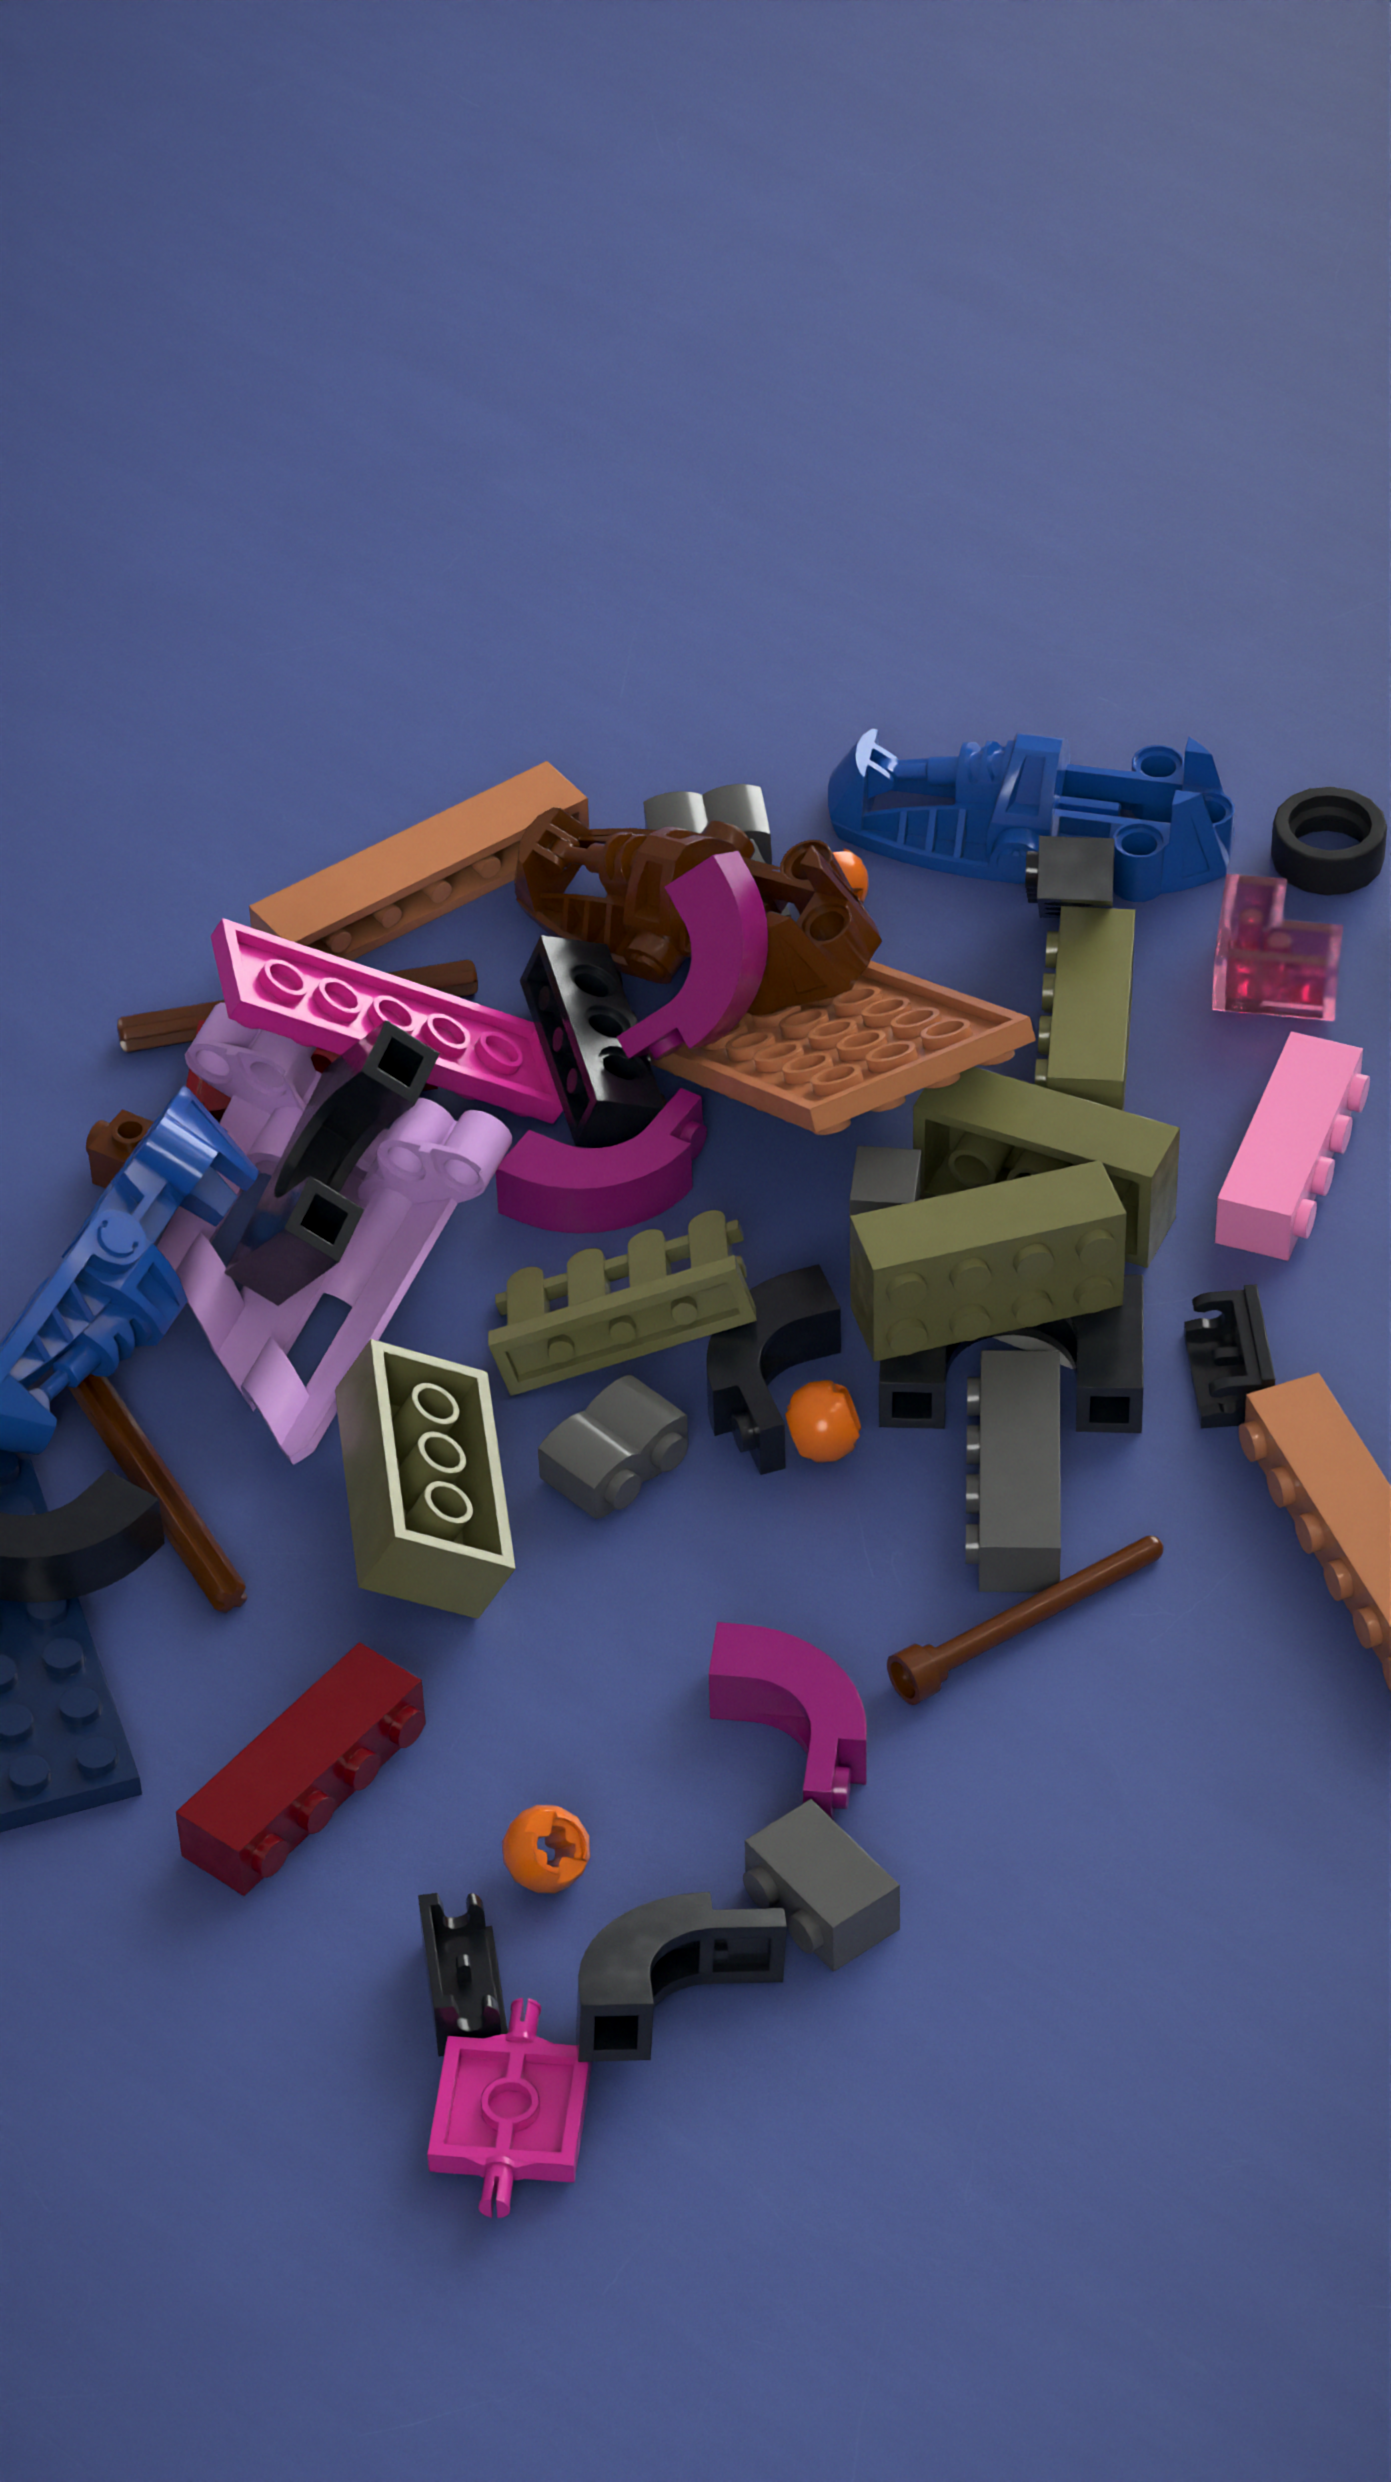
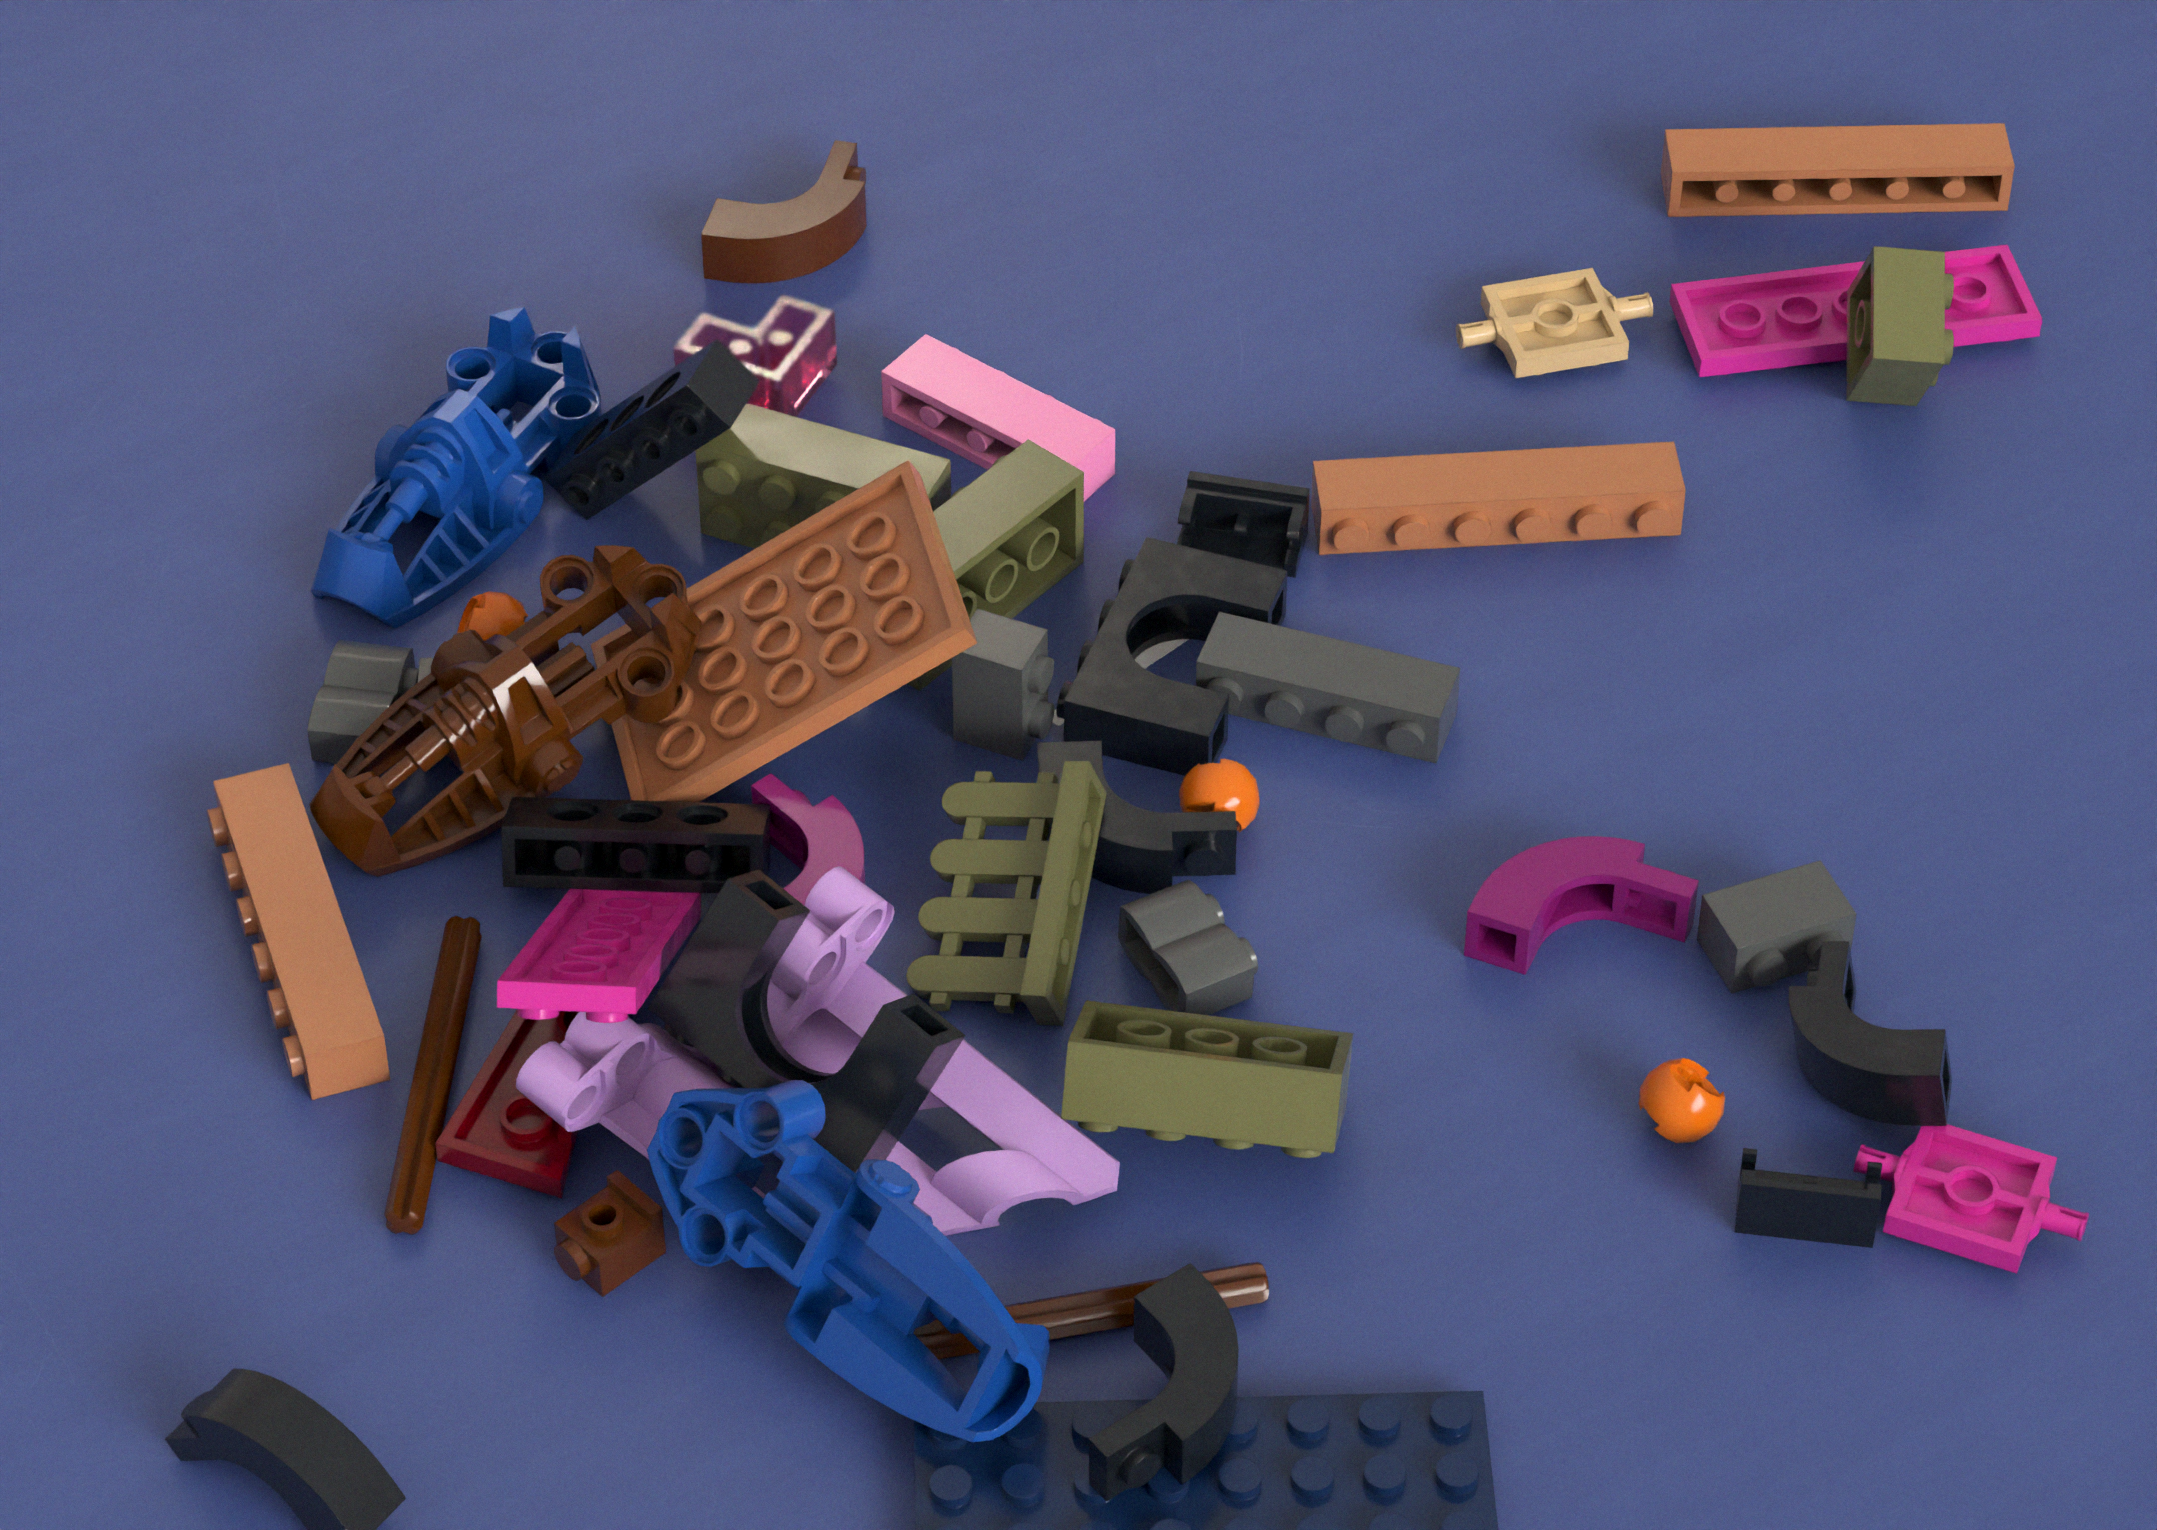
camera: 75 degrees left, 0 degrees up
(301, 1769) = (1520, 1261): dark red brick -> none
(727, 959) = (694, 672): magenta arch -> none
(920, 1670) = (1537, 809): reddish brown piece -> none
(987, 1260) = (1148, 600): olive brick -> none
(1333, 811) = (606, 274): black tyre -> none

